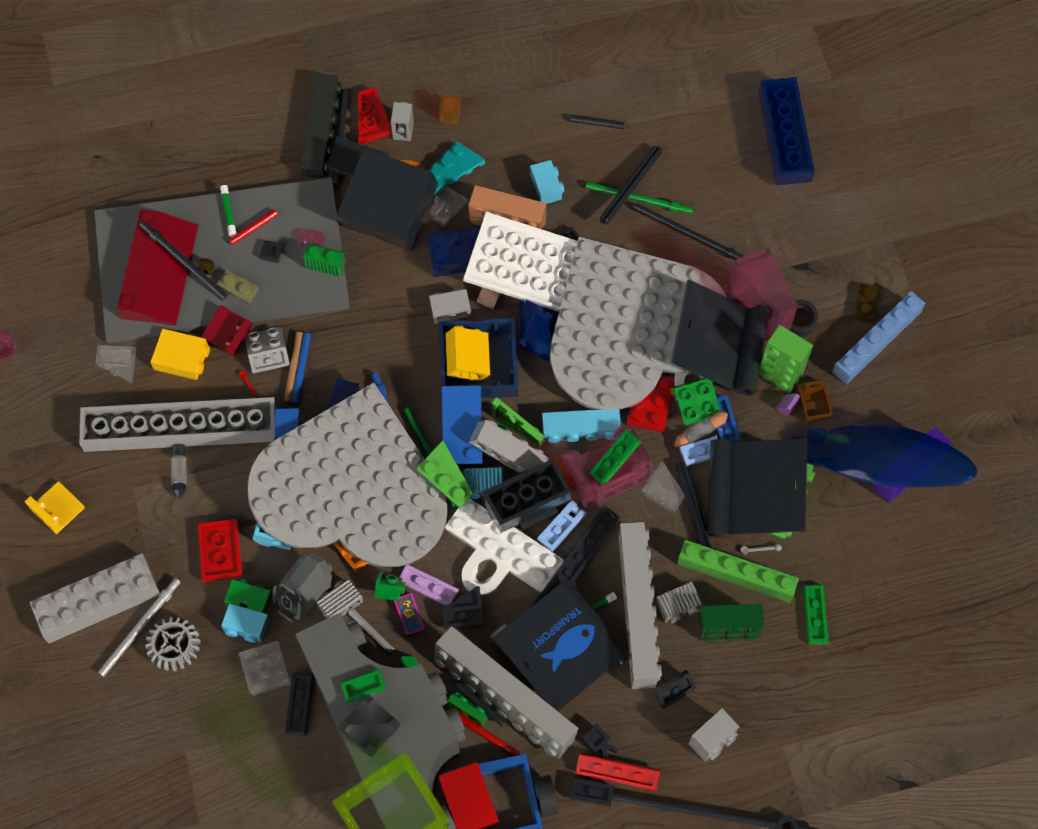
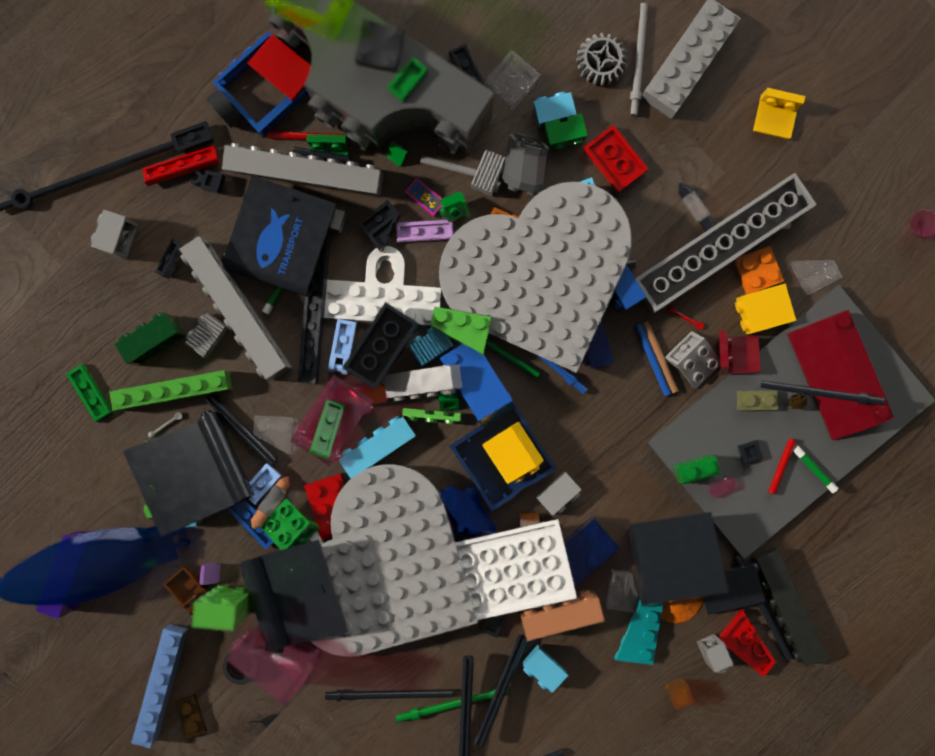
camera: 150 degrees right, 20 degrees up
(162, 387) = (758, 270): none -> orange plate
(592, 185) = (500, 691): none -> black axle

